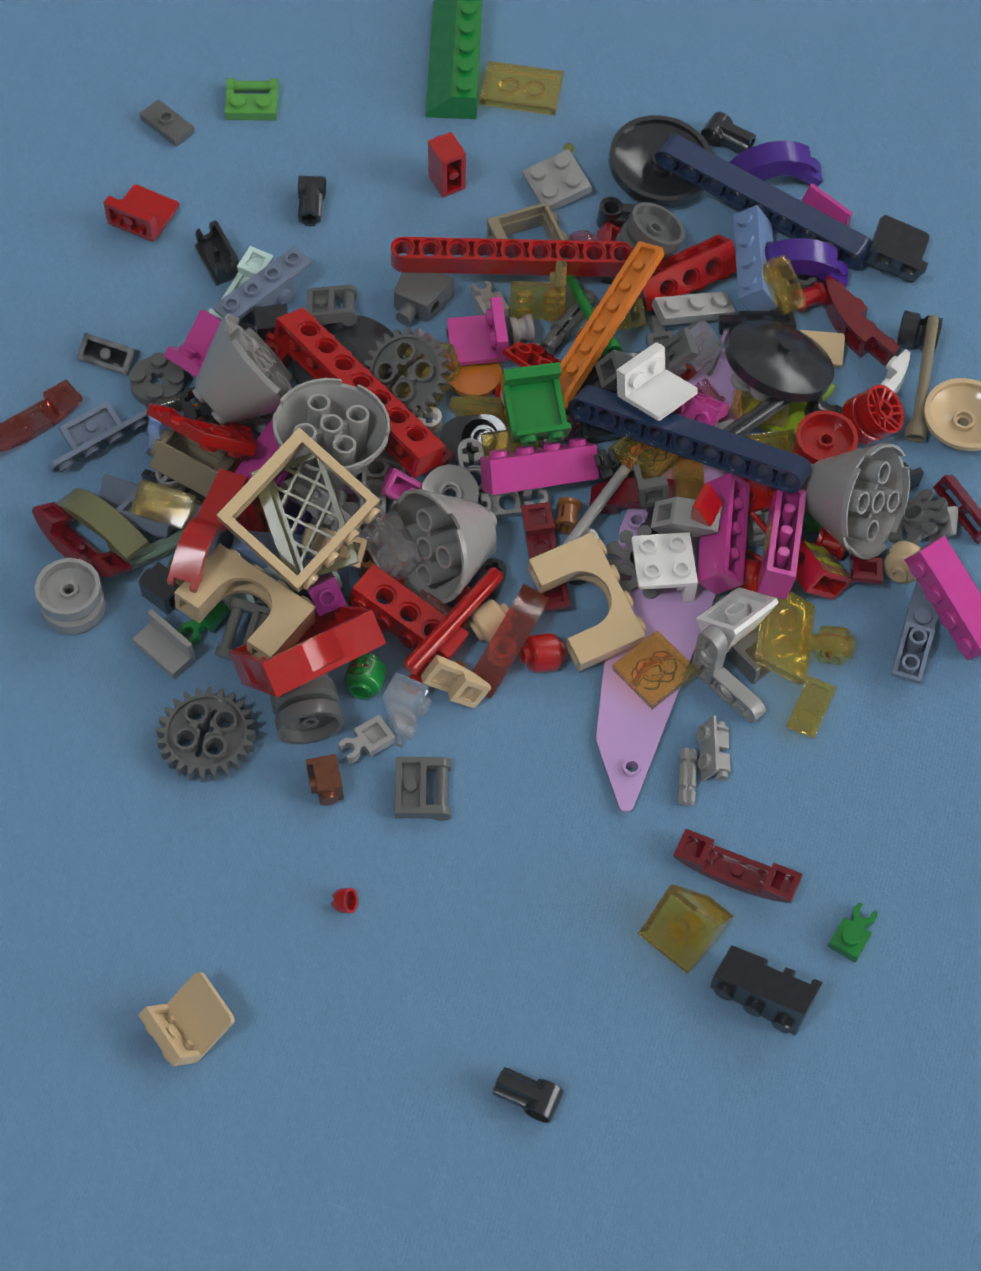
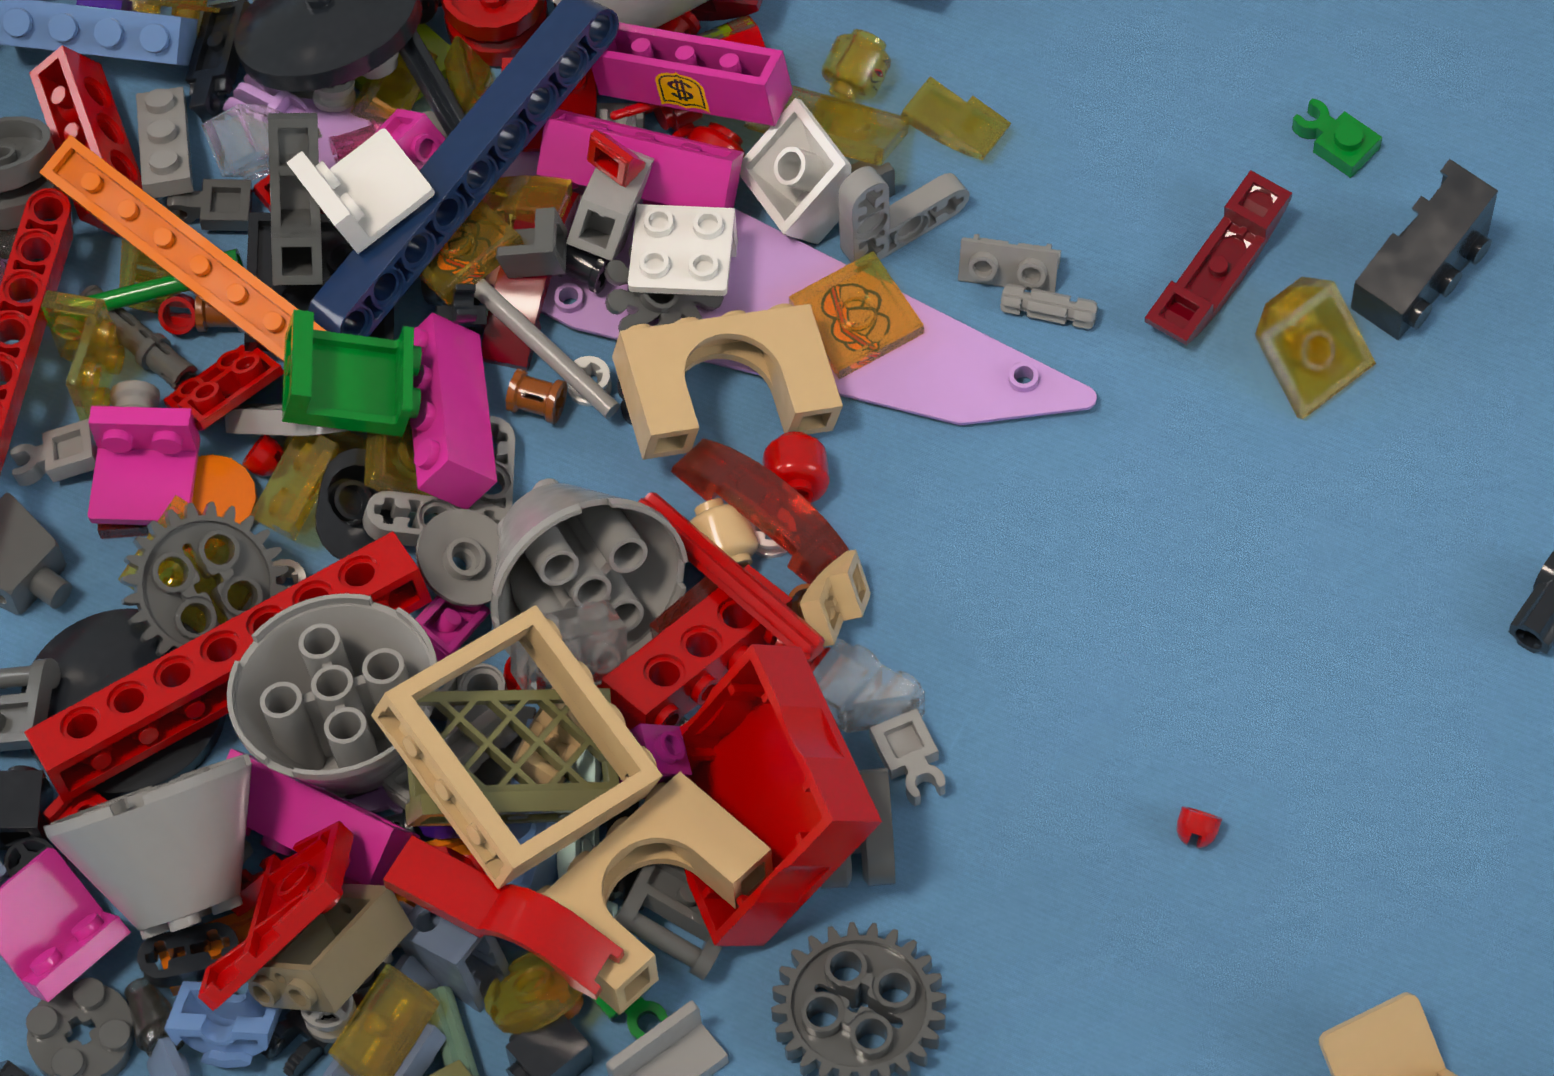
camera: 75 degrees left, 0 degrees up
(325, 779) = (978, 824): copper brick -> none
(411, 788) = (1007, 697): dark grey plate -> none
(540, 538) = (591, 446): dark red slope -> none

